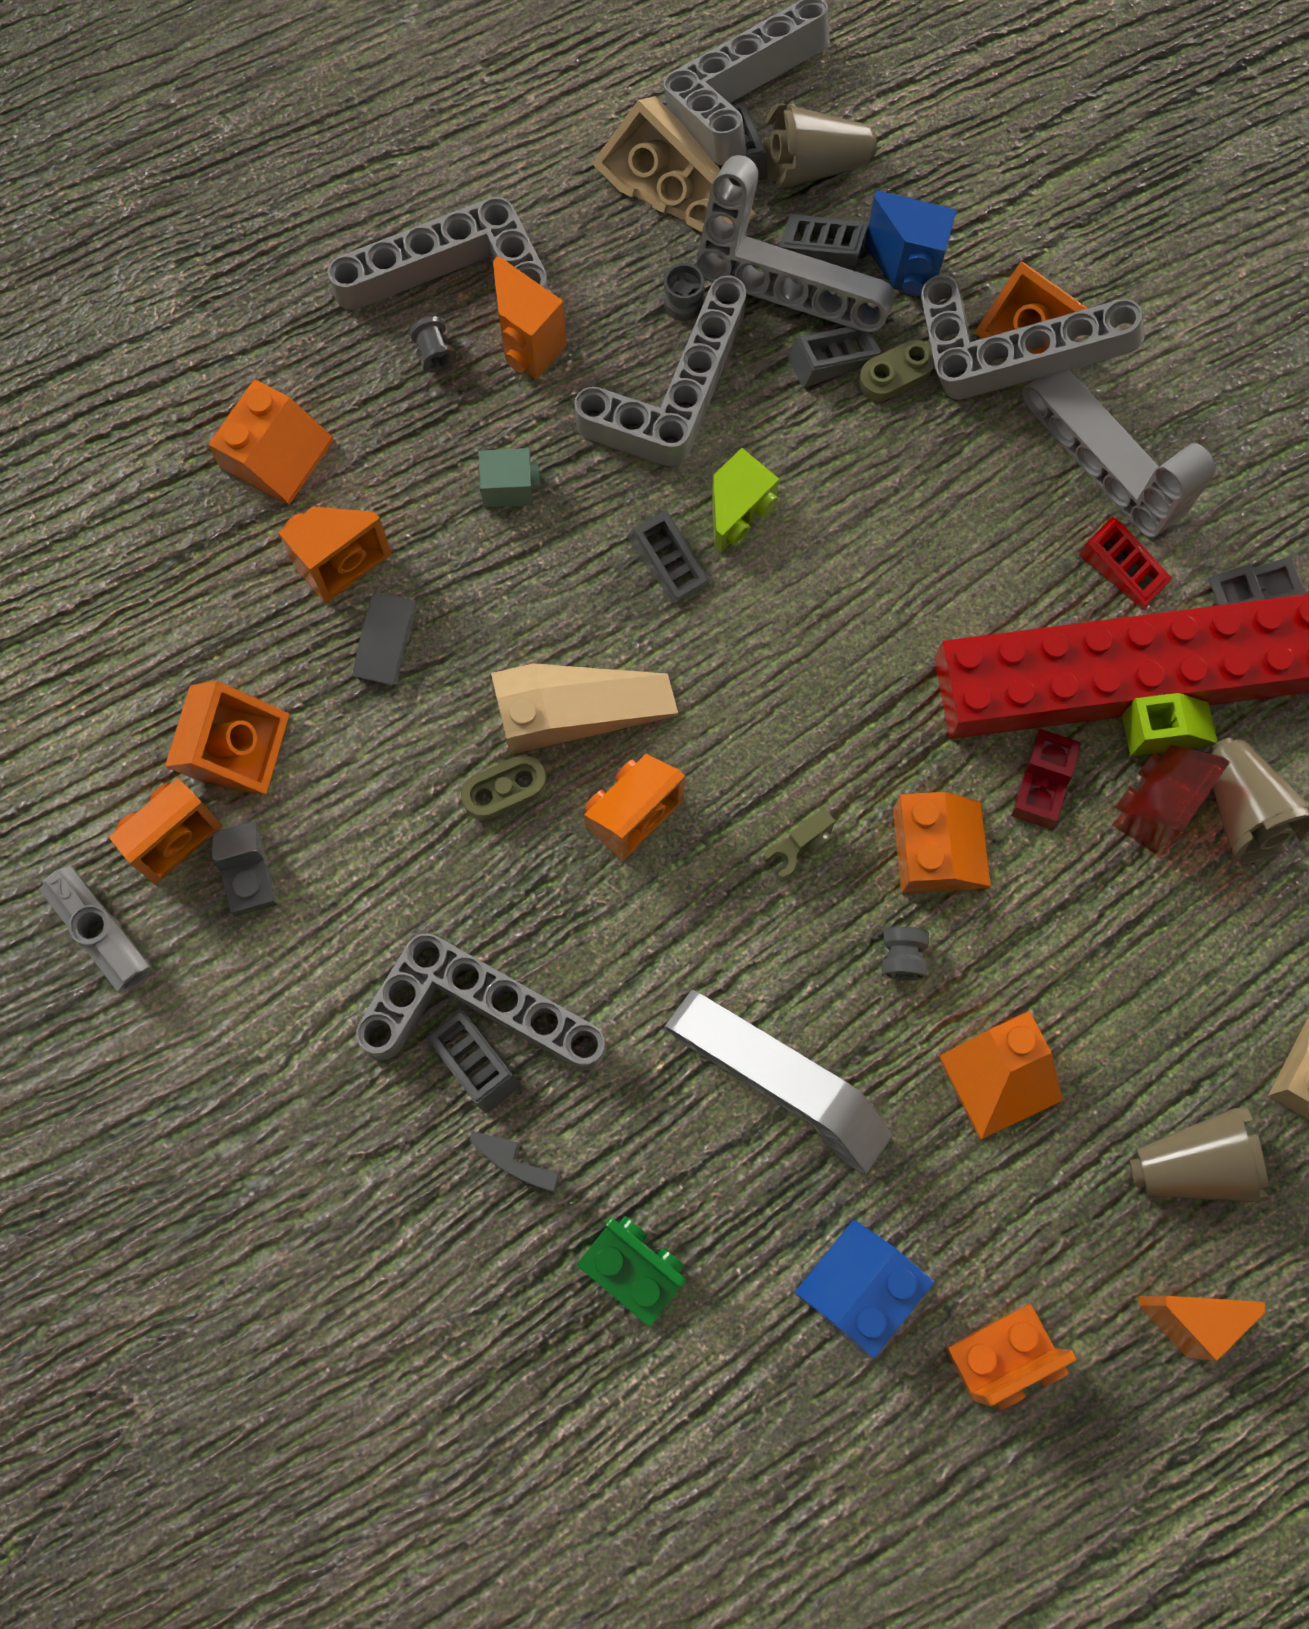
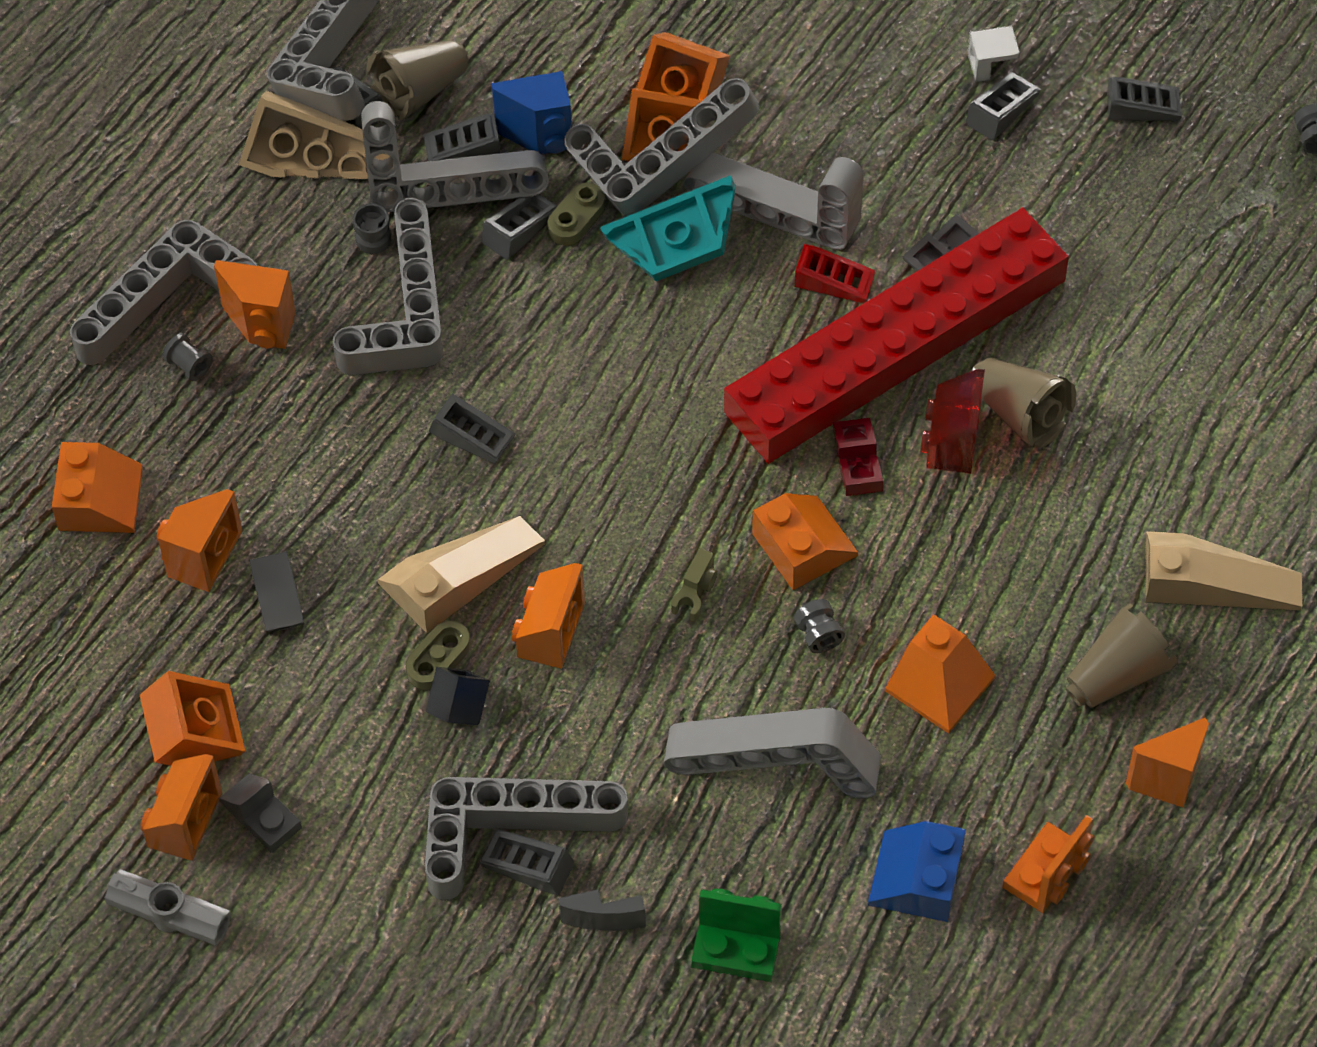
camera: 25 degrees left, 15 degrees down
(498, 843) = (457, 696): none -> black panel
(507, 477) = (308, 428): sand green brick -> none
(739, 495) = (503, 360): lime slope -> none
(989, 439) = (677, 230): none -> teal wing
(1086, 262) = (682, 67): none -> orange slope
(1168, 720) = (921, 369): lime slope -> none

